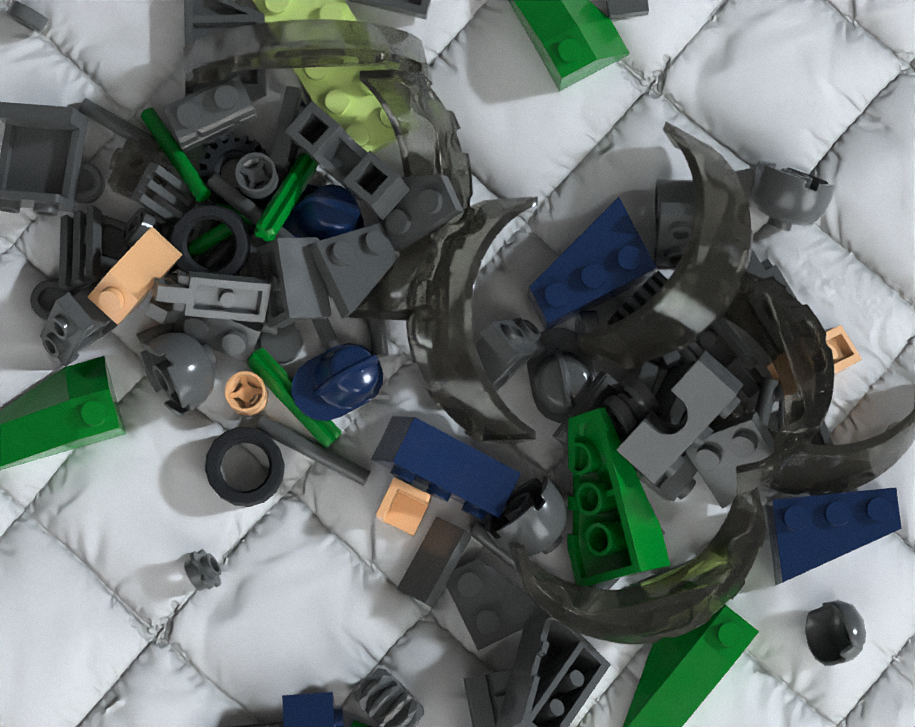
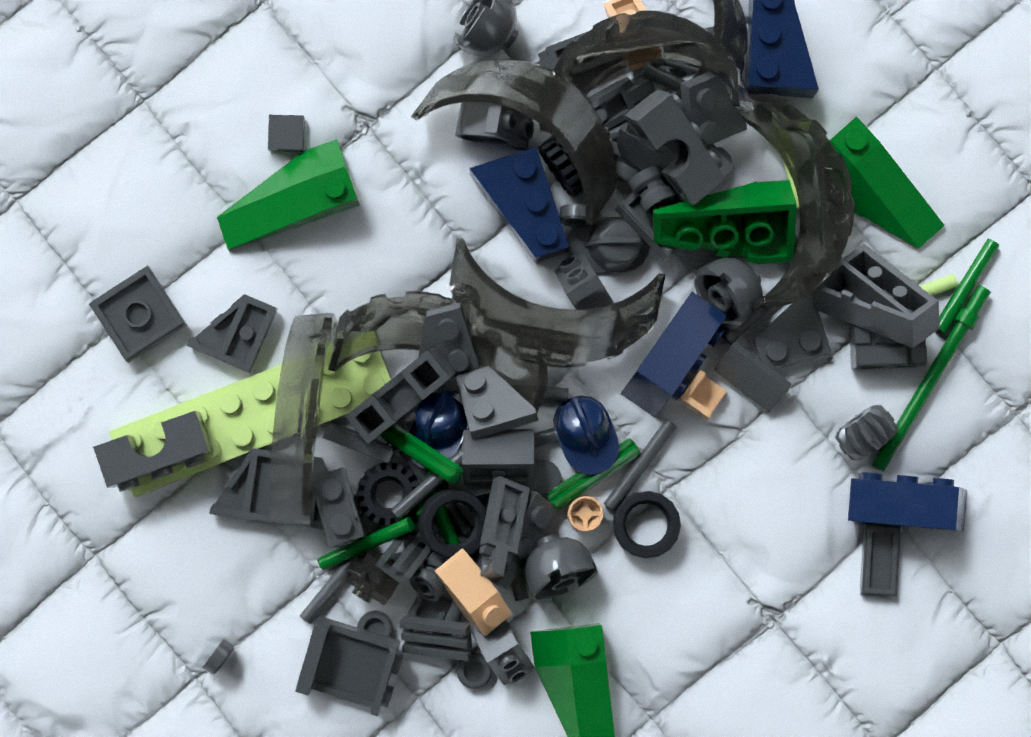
camera: 80 degrees left, 5 degrees up
(203, 570) = (729, 572): dark grey plate -> none
(257, 169) = (401, 474): dark grey wheel -> none
(835, 633) = (863, 54): dark grey hair -> none

